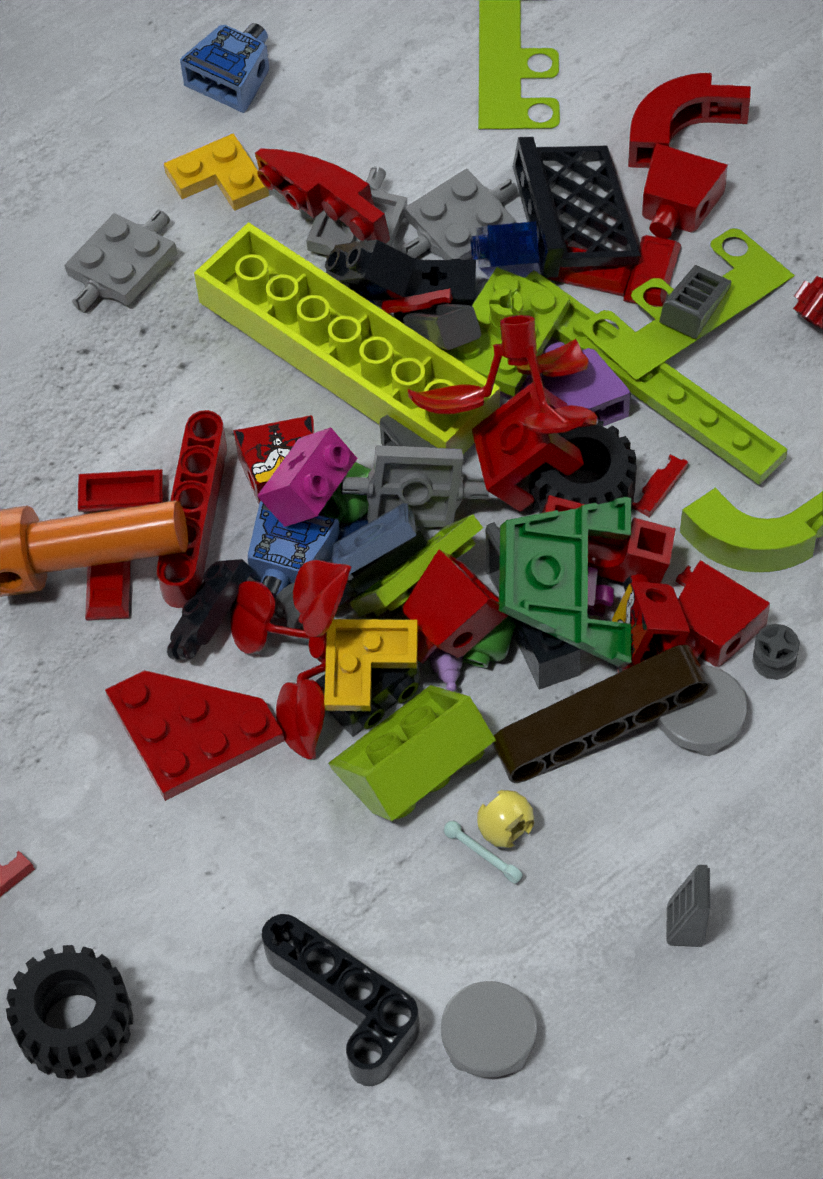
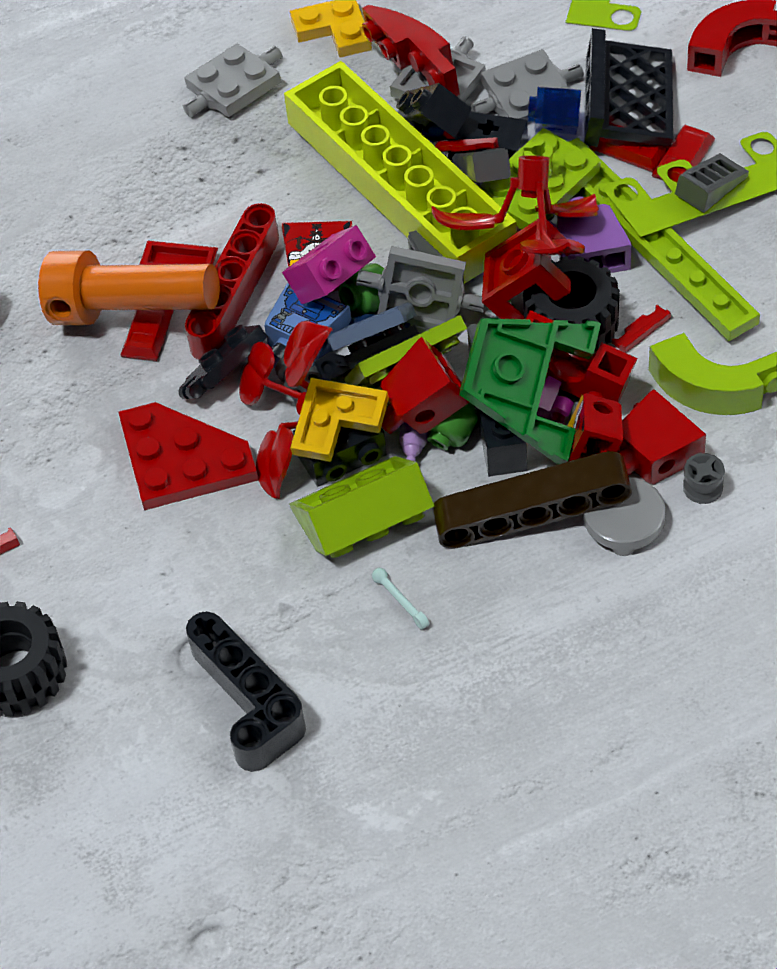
camera: 15 degrees right, 5 degrees down
(489, 1029) = (362, 742): light grey tile -> none
(505, 818) = (425, 572): light yellow piece -> none
(681, 190) = (725, 92): red torso -> none
(689, 910) = (565, 675): dark grey slope -> none

